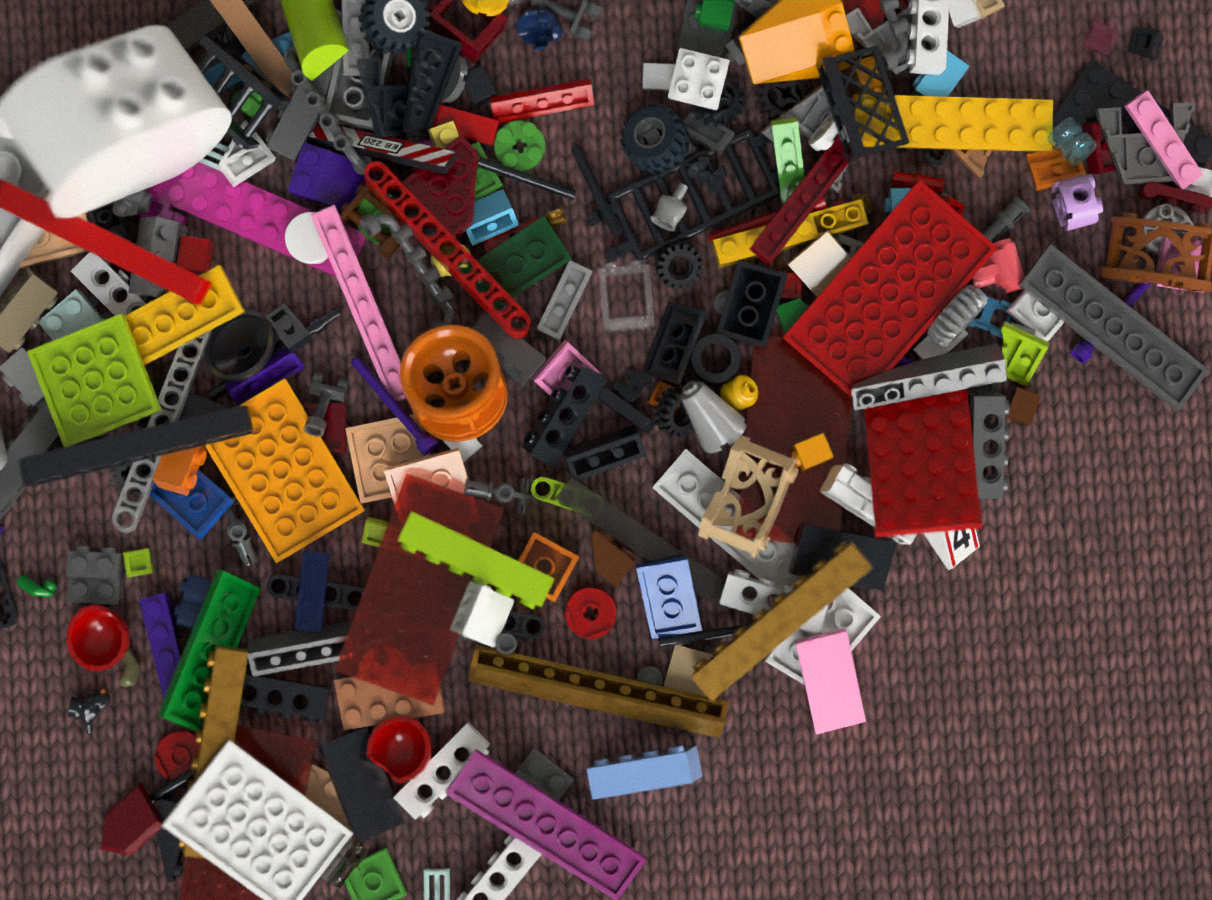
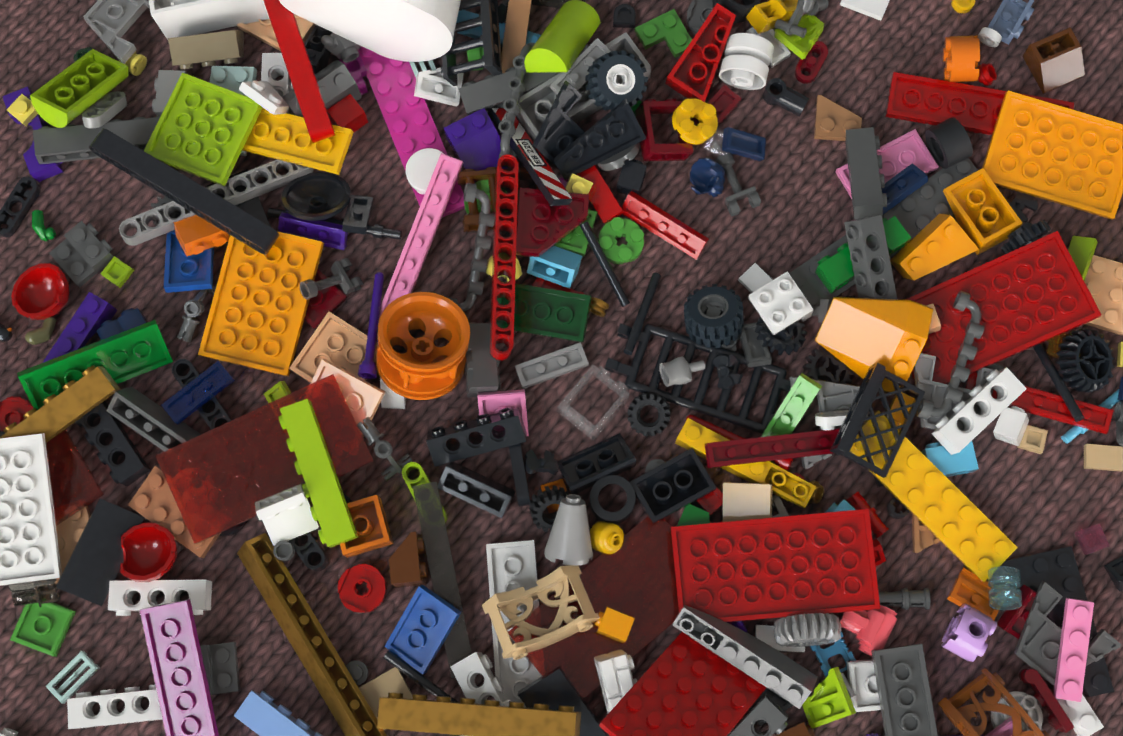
camera: 50 degrees right, 10 degrees down
(119, 305) = (265, 96): none -> white wing

